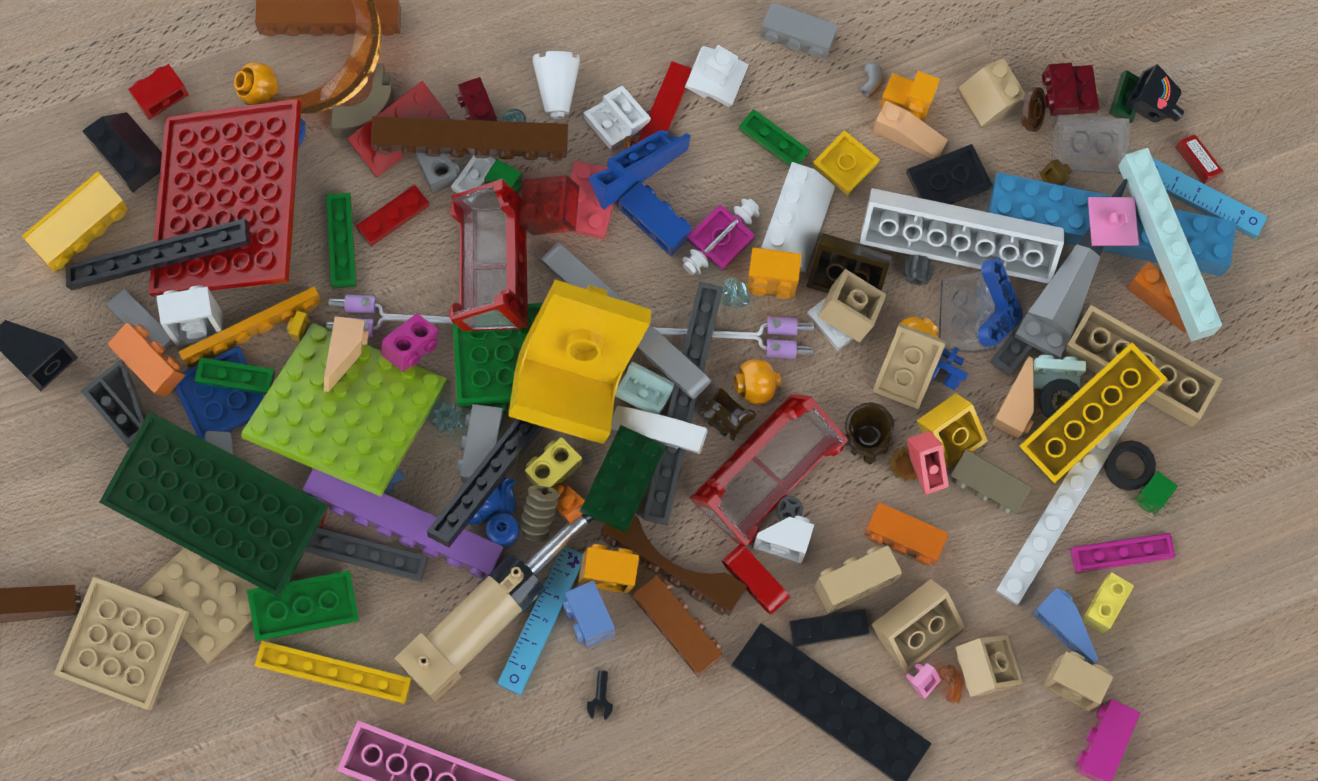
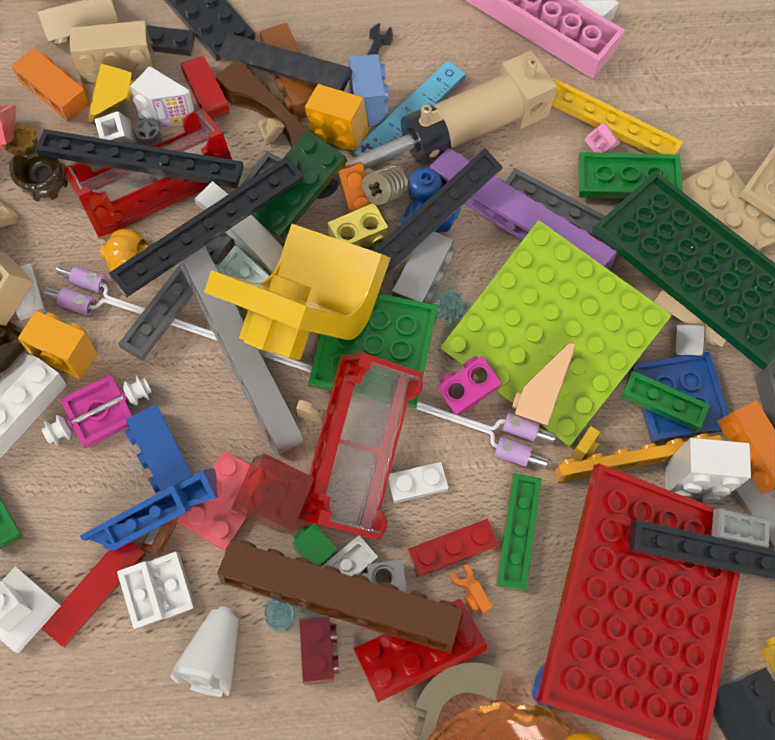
camera: 165 degrees left, 5 degrees down
(156, 277) = (741, 527): none -> light grey plate
(338, 642) = (602, 139): none -> bright pink tile
(364, 179) = (476, 597): none -> orange plate
(435, 258) = (417, 482): none -> white plate
(541, 287) = (305, 412): none -> tan tile
(674, 554) = (270, 129): none -> tan tile
(679, 397) = (205, 227): none -> black plate
(680, 613) = (285, 62): none -> black tile
(726, 414) = (165, 217): dark brown hair -> none
(736, 293) = (107, 347): clear light blue tile -> none
(777, 462) = (140, 158): none -> black plate
(818, 495) = (115, 127): none -> white brick
(839, 528) = (109, 91): none -> yellow slope

